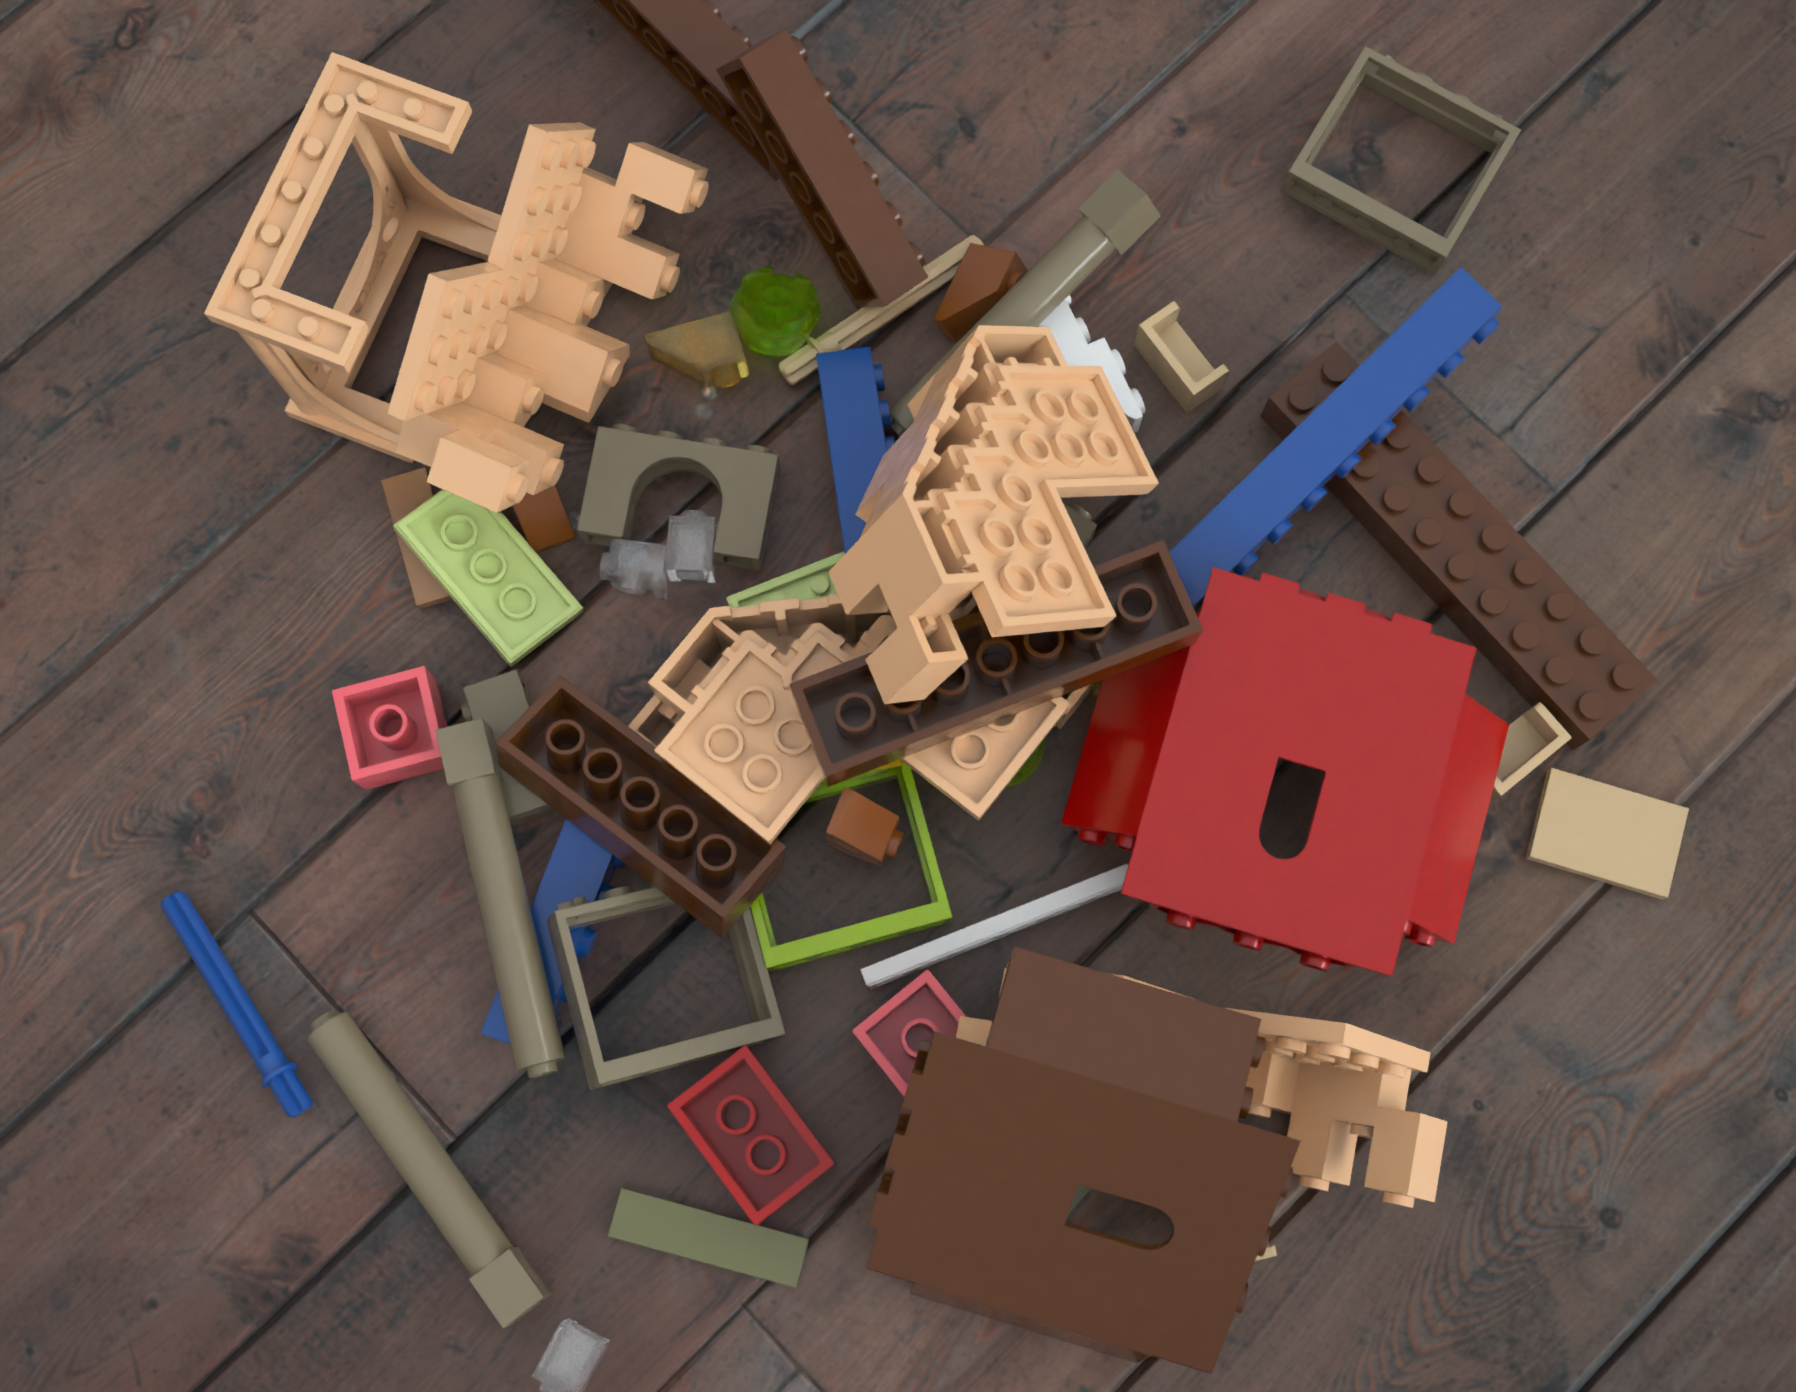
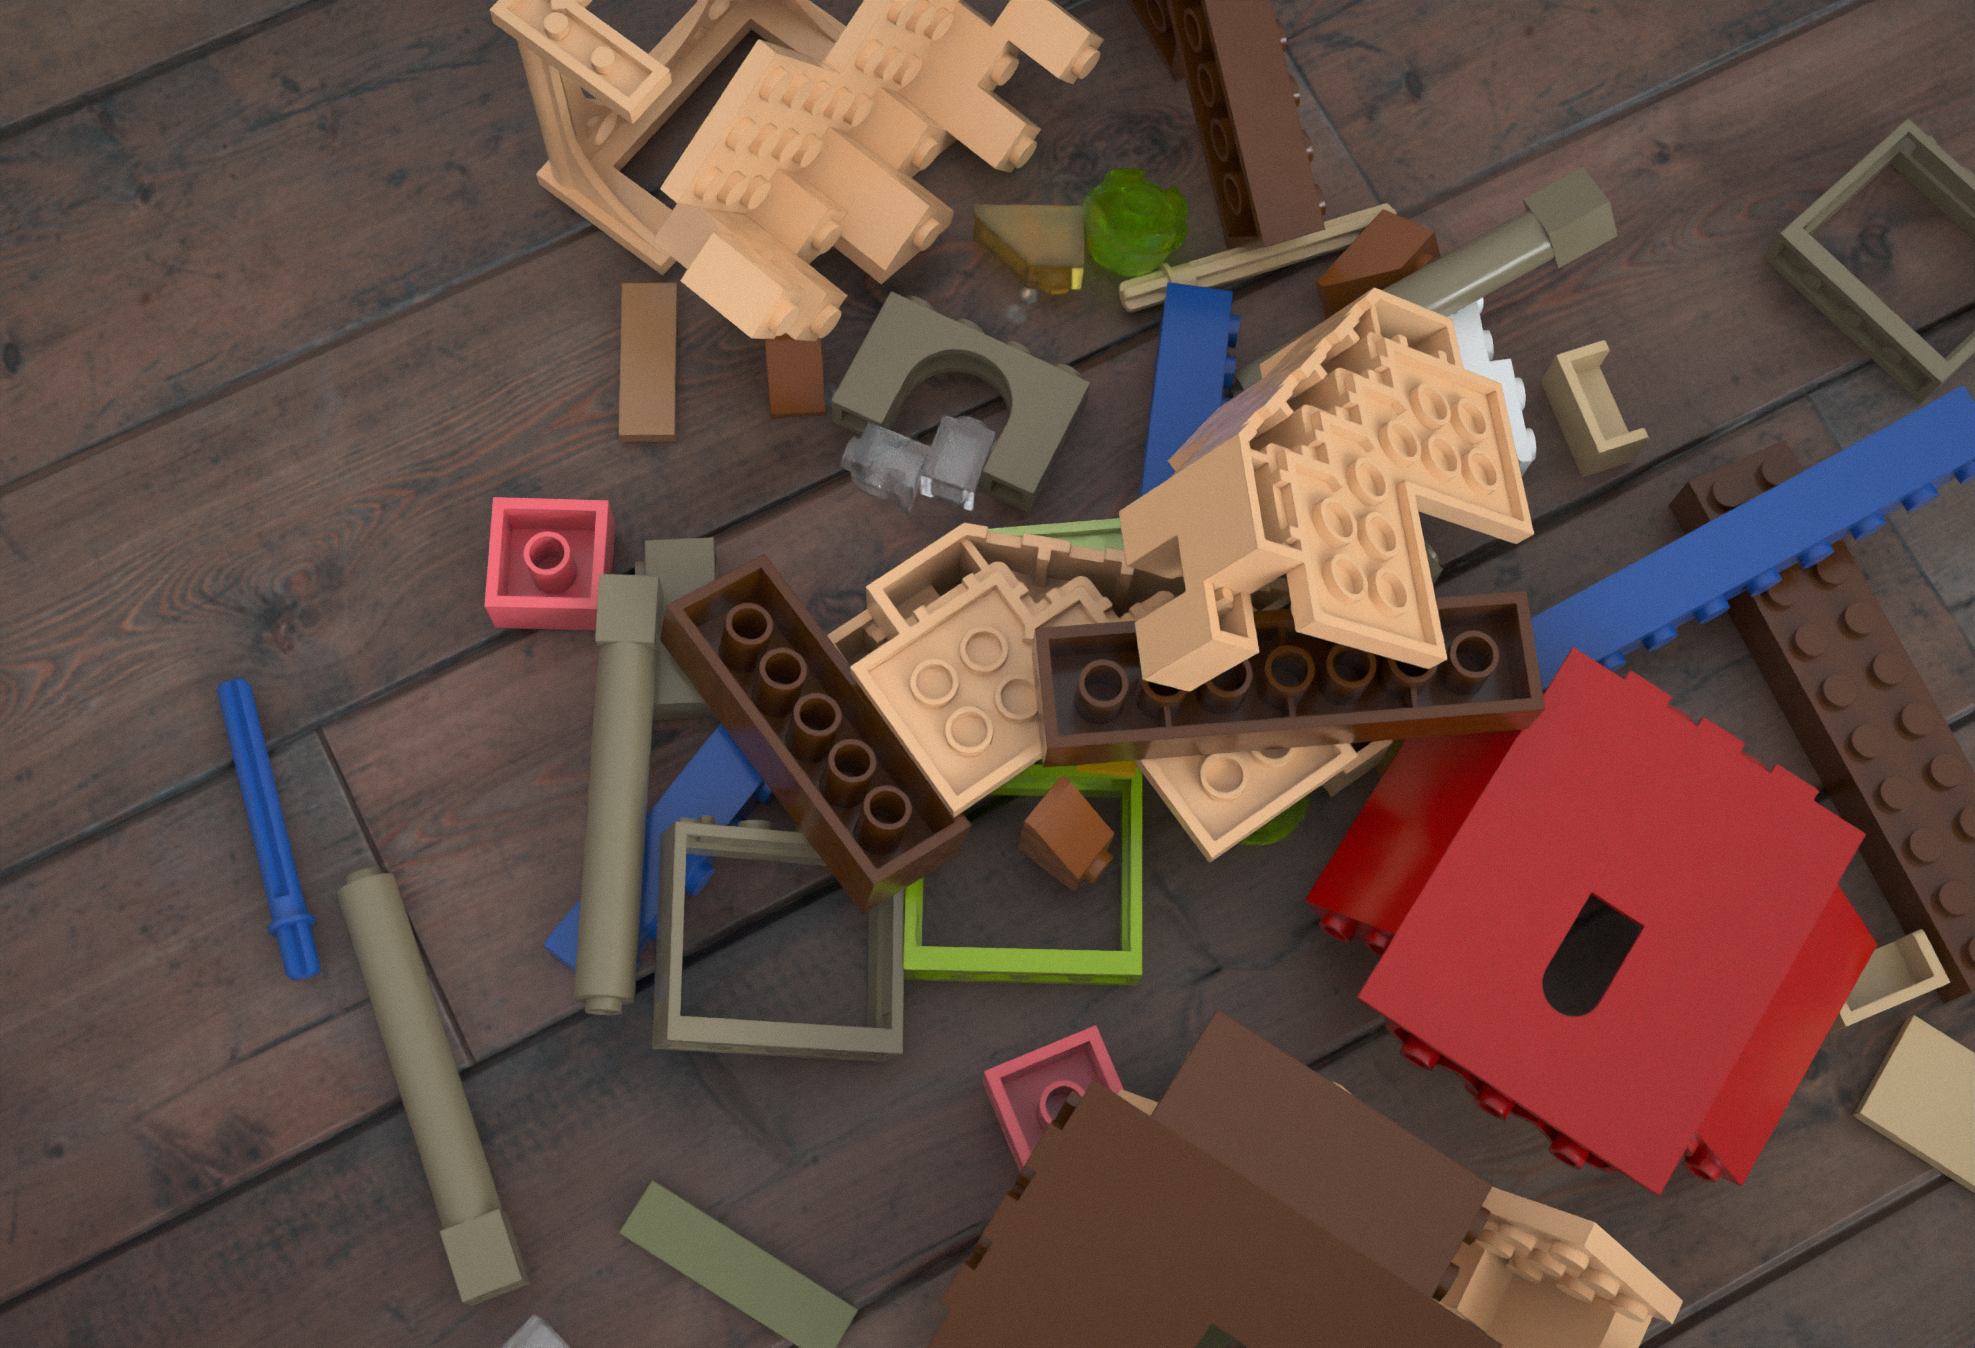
camera: 10 degrees right, 5 degrees down
(489, 573) = (714, 419): yellowish green tile -> none
(751, 1135) = (828, 1162): red brick -> none
(994, 928) = (1187, 1005): white tile -> none

